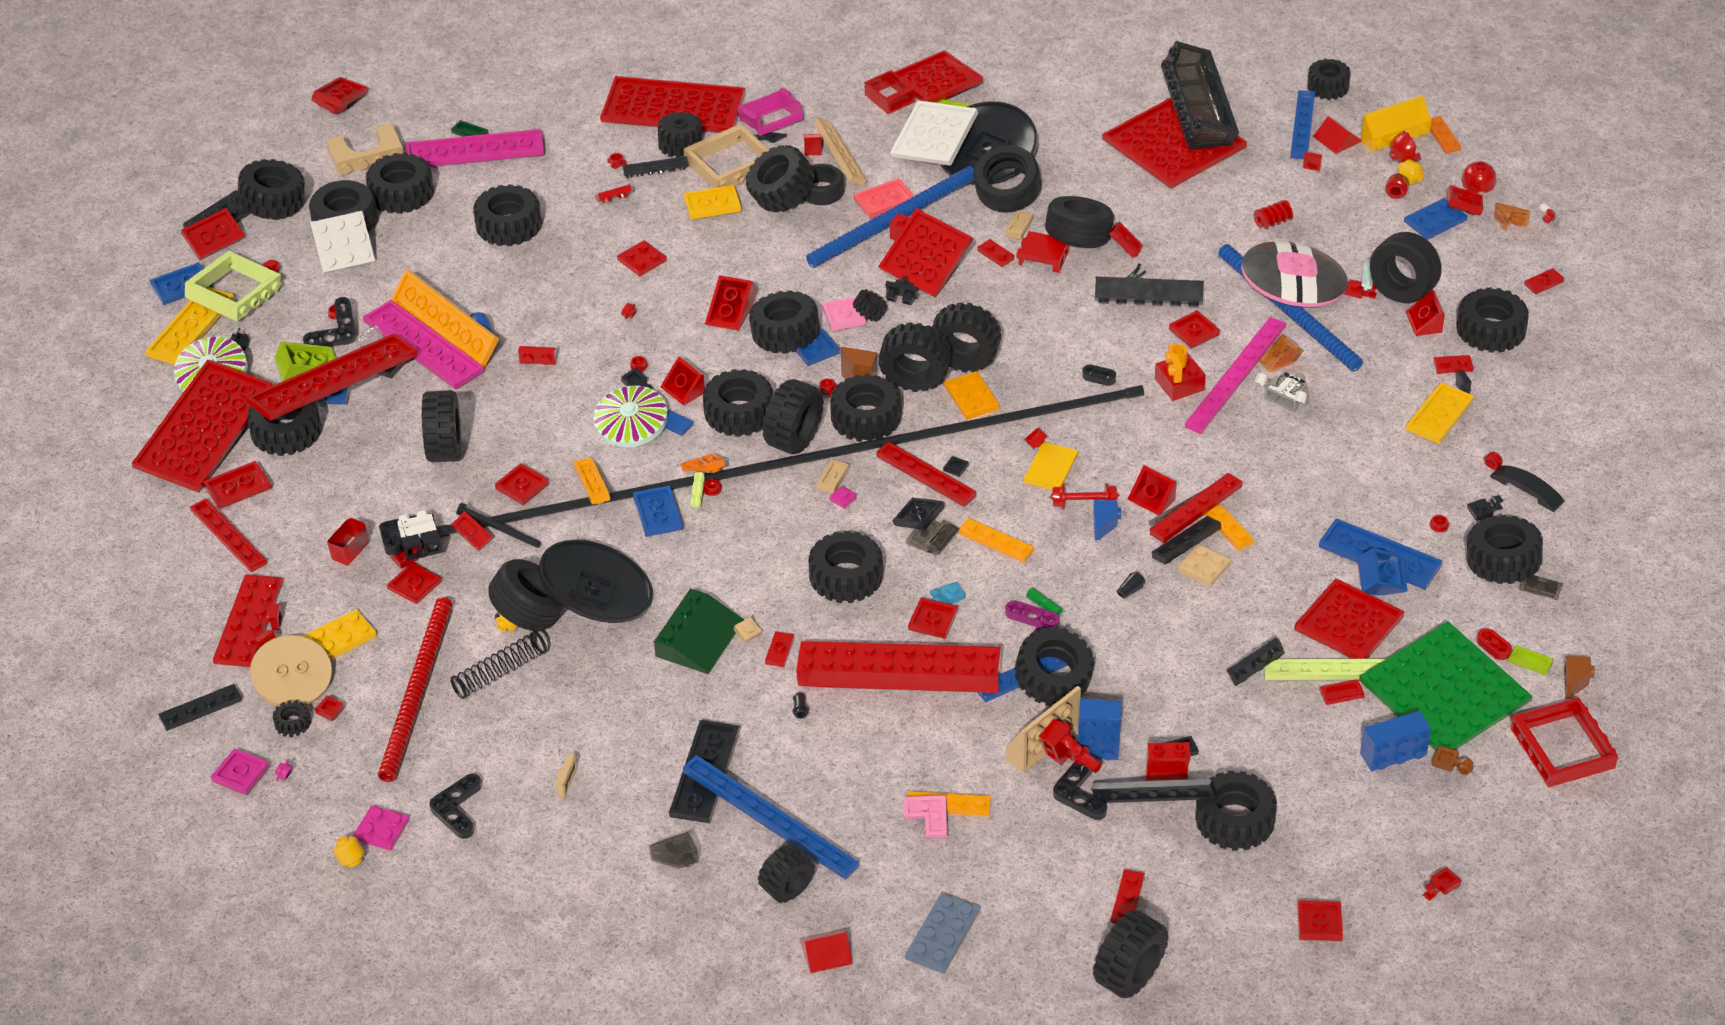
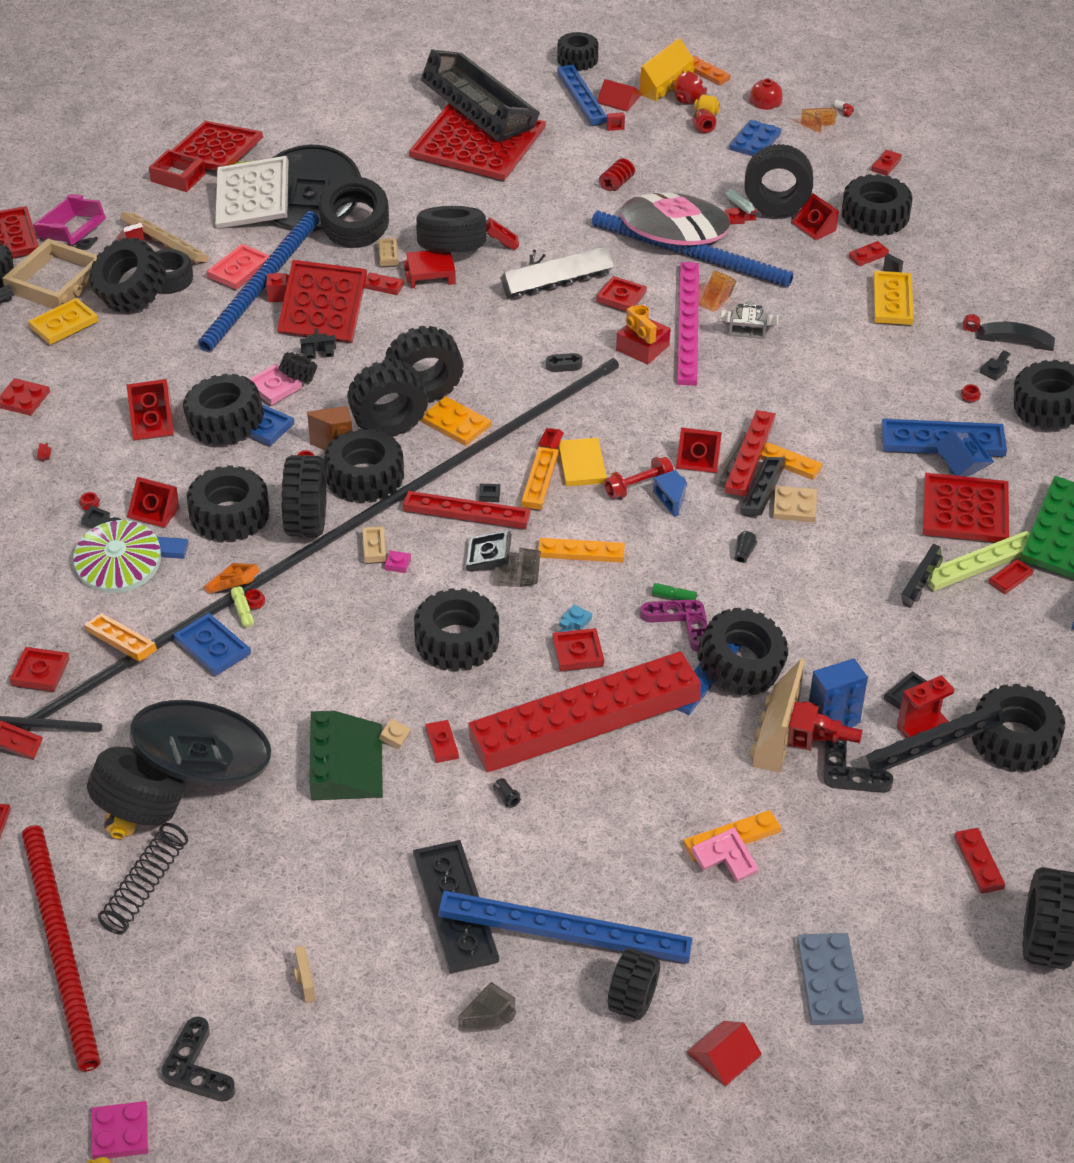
camera: 30 degrees left, 0 degrees up
(1004, 468) = (540, 478): none -> light orange plate
(1464, 199) = (772, 115): red plate -> none

